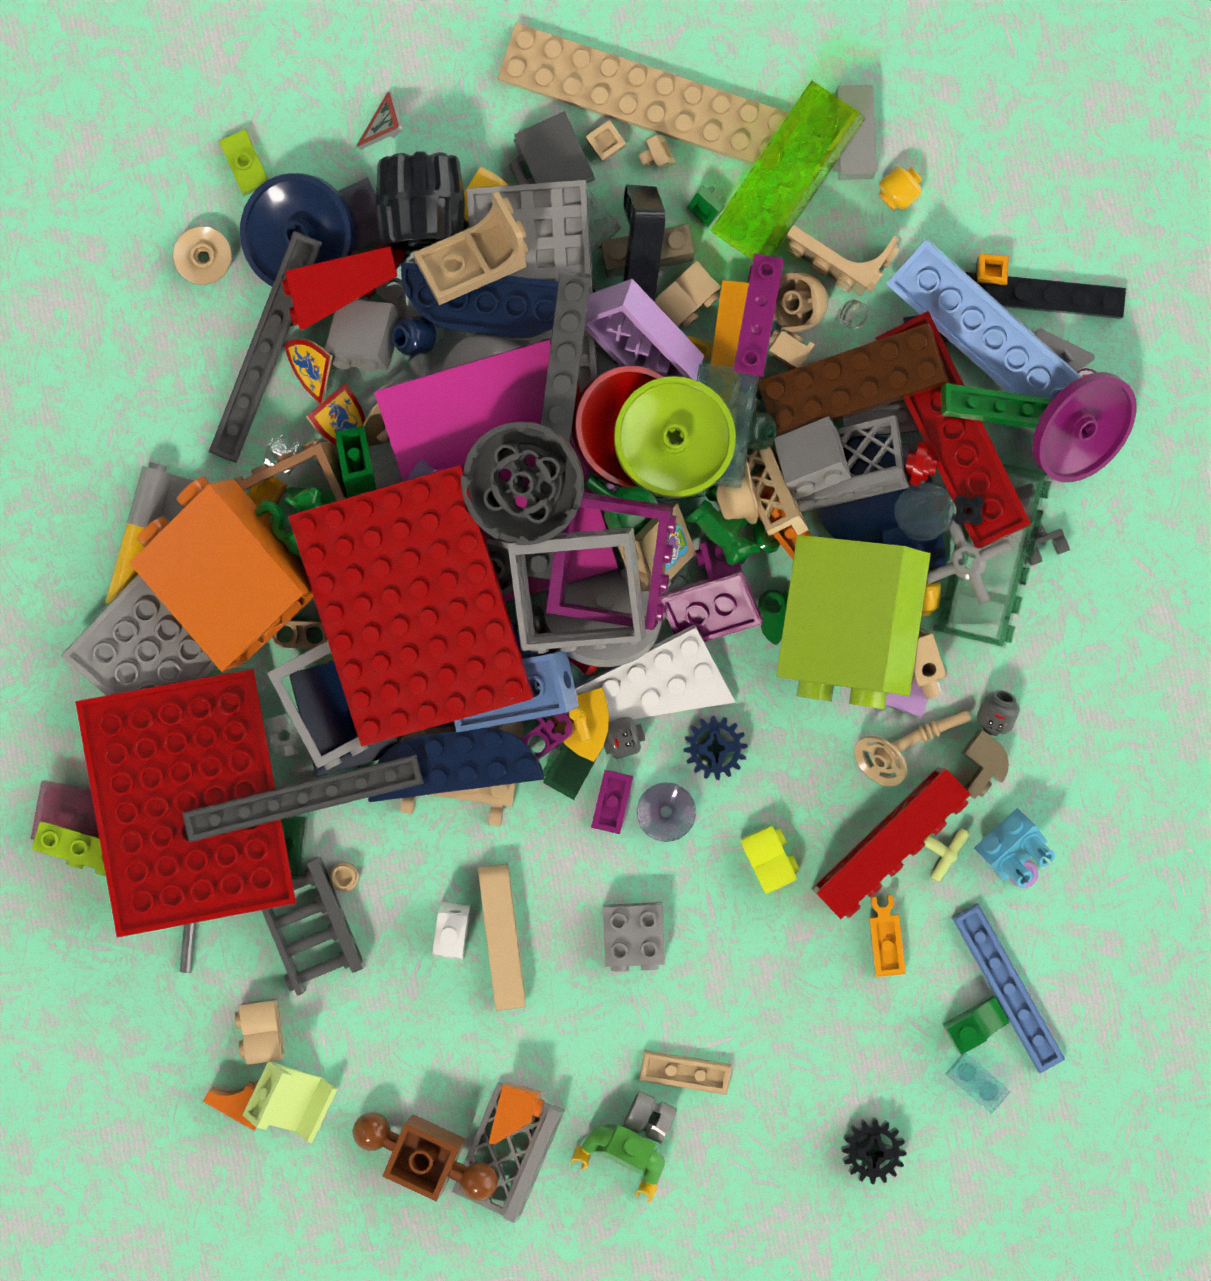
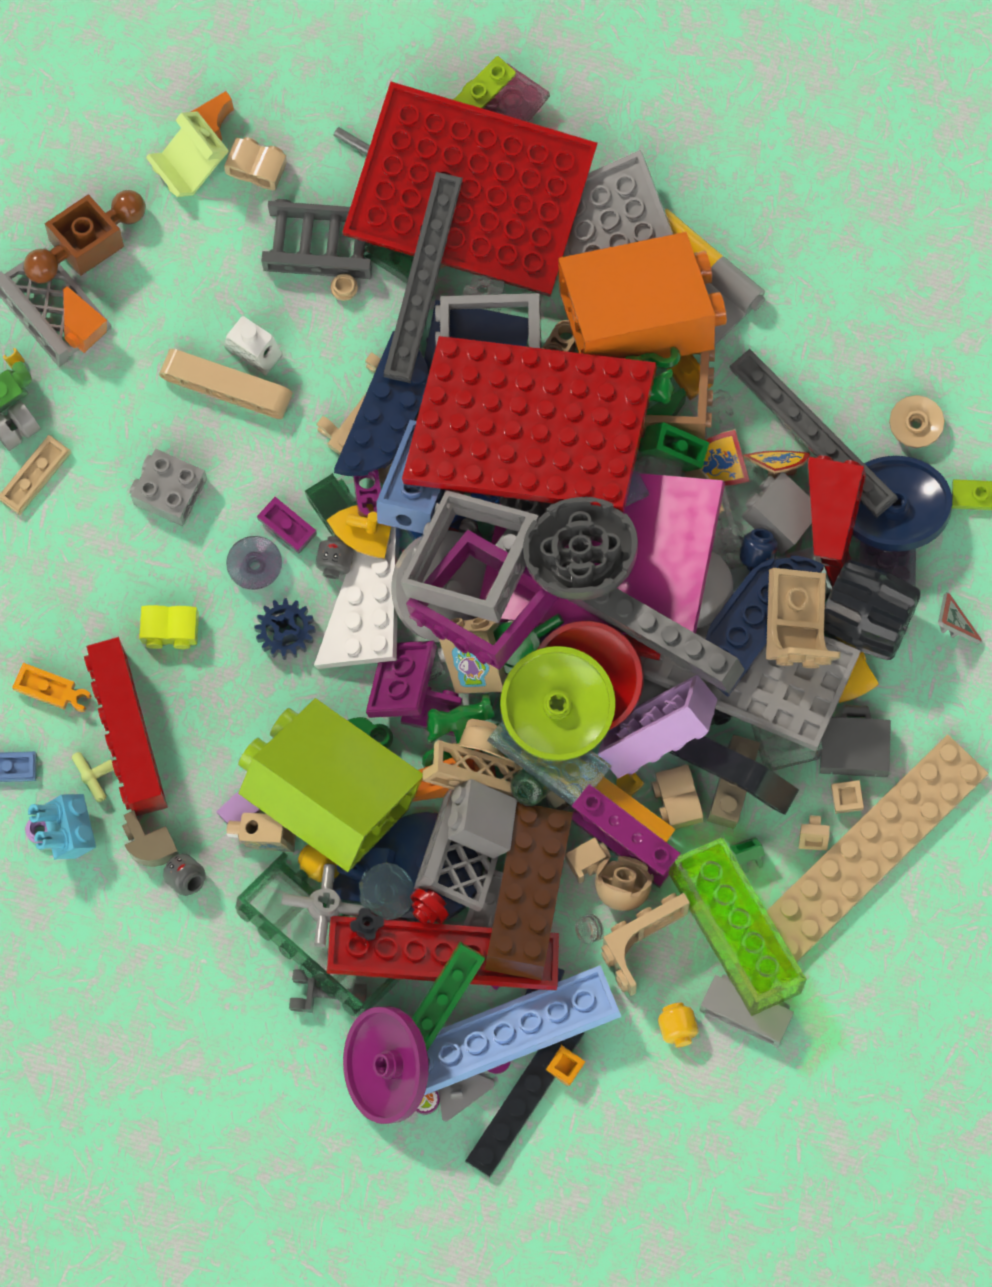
camera: 125 degrees right, 15 degrees down
(887, 753) = (200, 763): tan dish -> none

